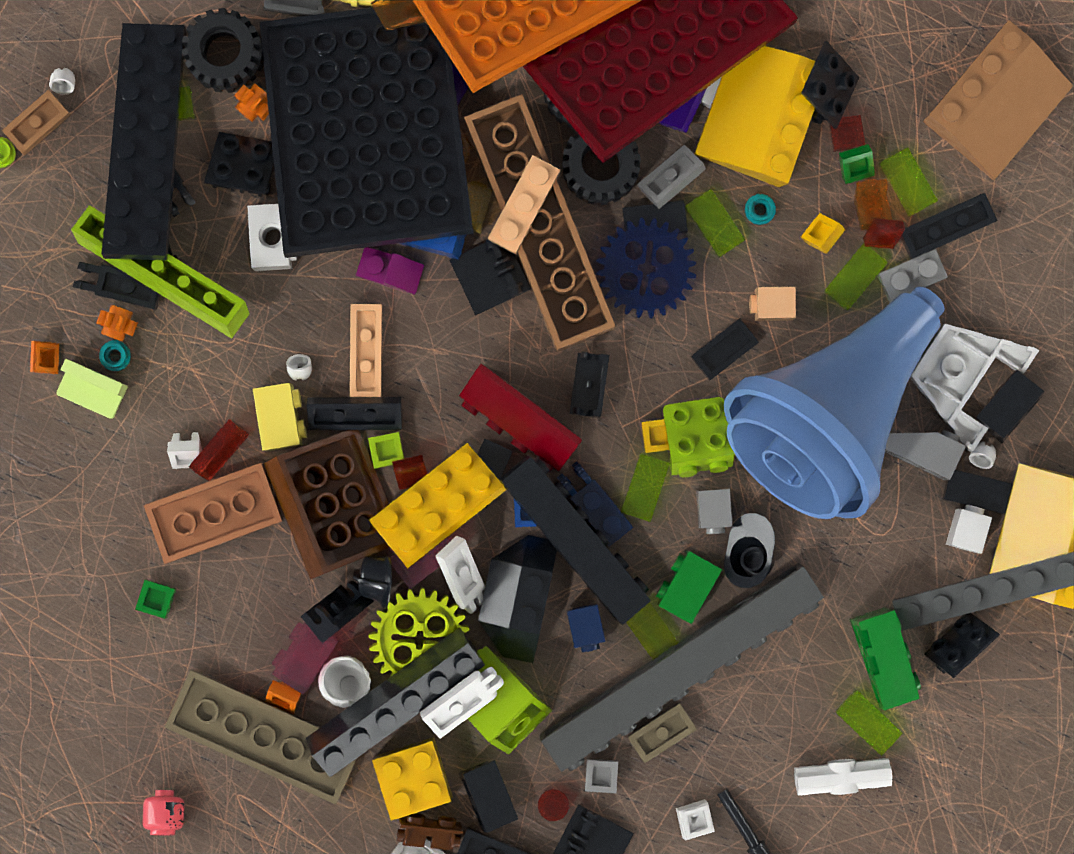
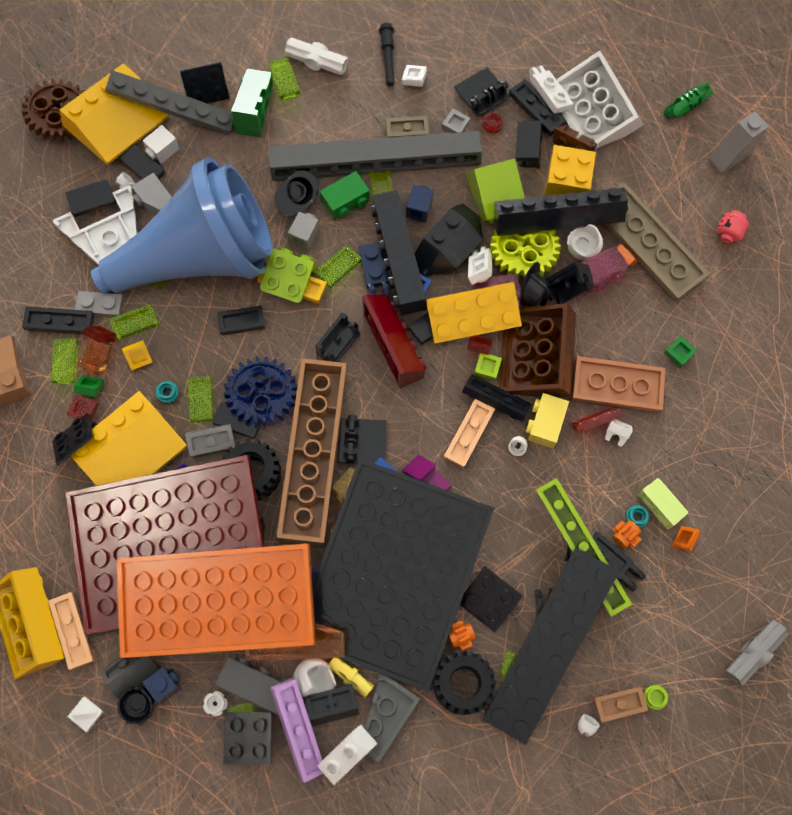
camera: 155 degrees left, 15 degrees down
(265, 256) = (504, 527): white brick -> none
(462, 701) = (519, 188): white hinge -> none
(524, 204) = (316, 462): light nougat plate -> none
(773, 303) = (194, 328): light nougat brick -> none

